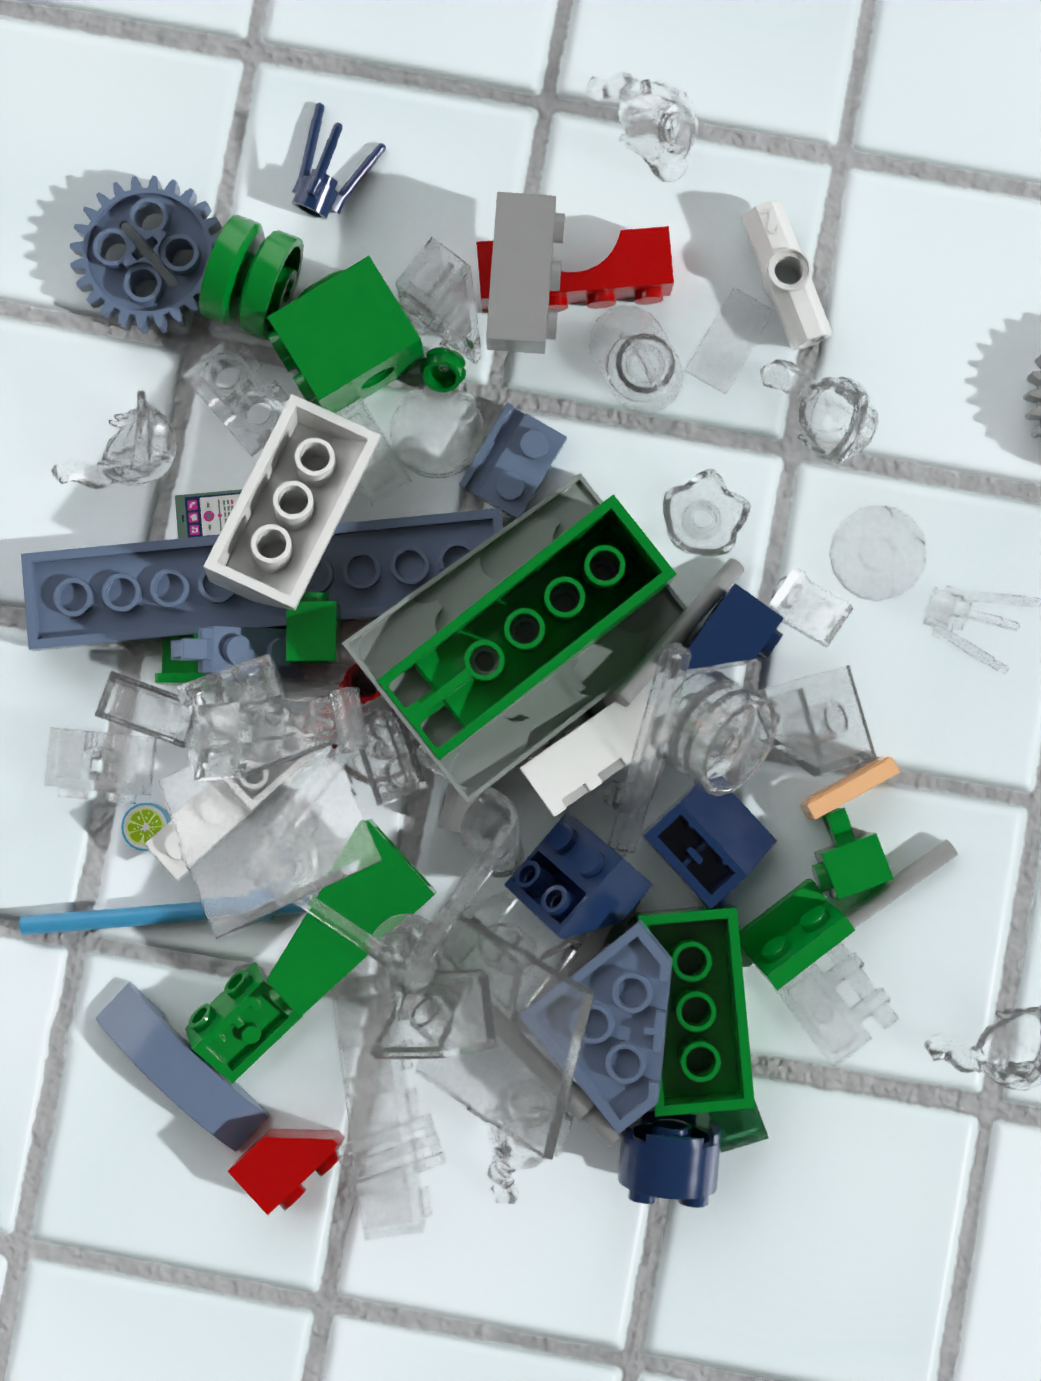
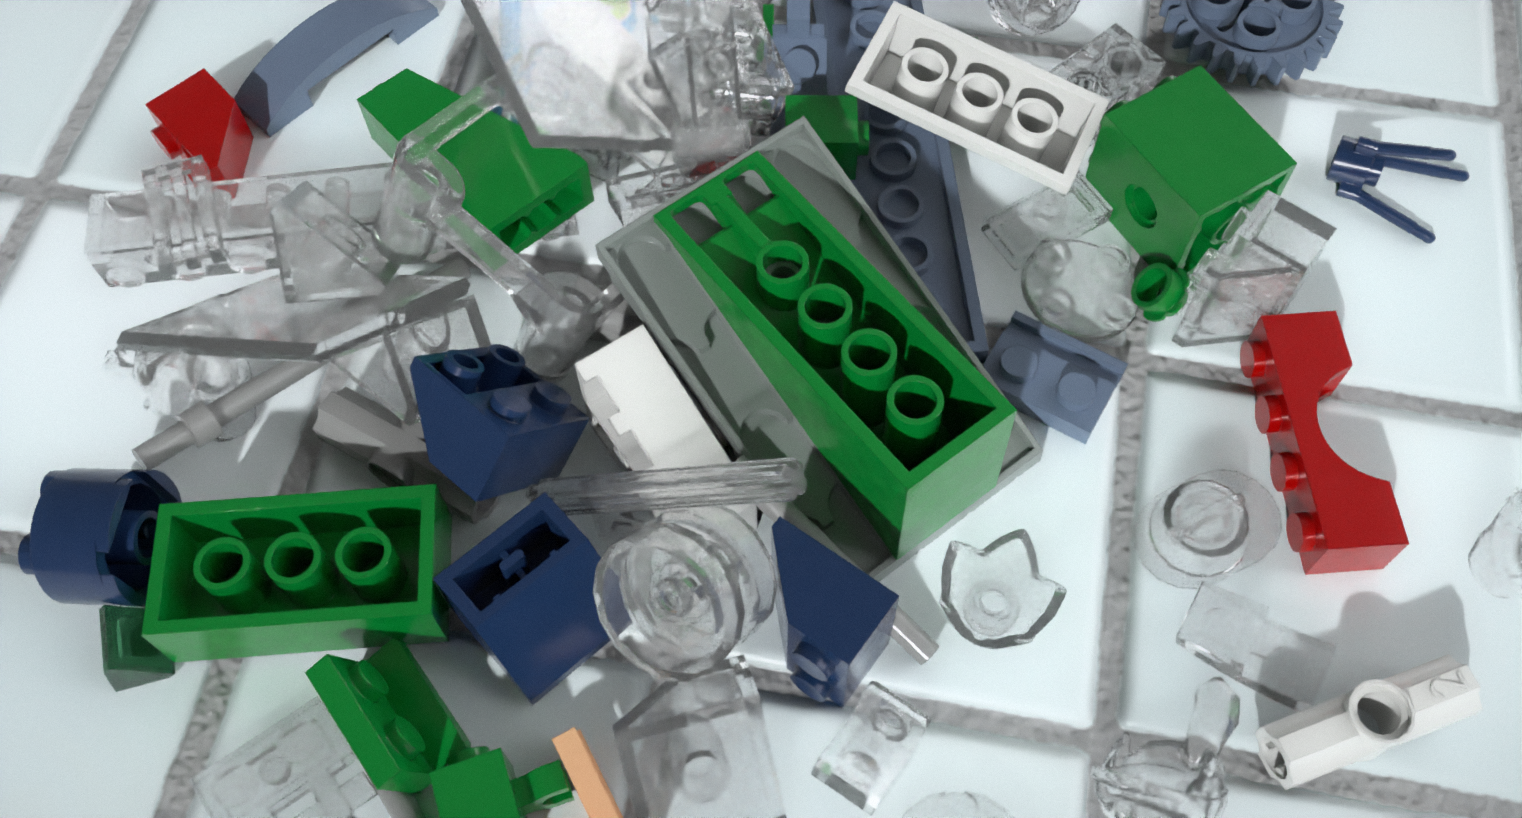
camera: 90 degrees right, 25 degrees down
(238, 1024) = (346, 78): green bracket -> none
(250, 275) = (1260, 61): green wheel -> none
(523, 273) = (1308, 345): light grey brick -> none
(625, 1026) = (289, 446): sand blue plate -> none

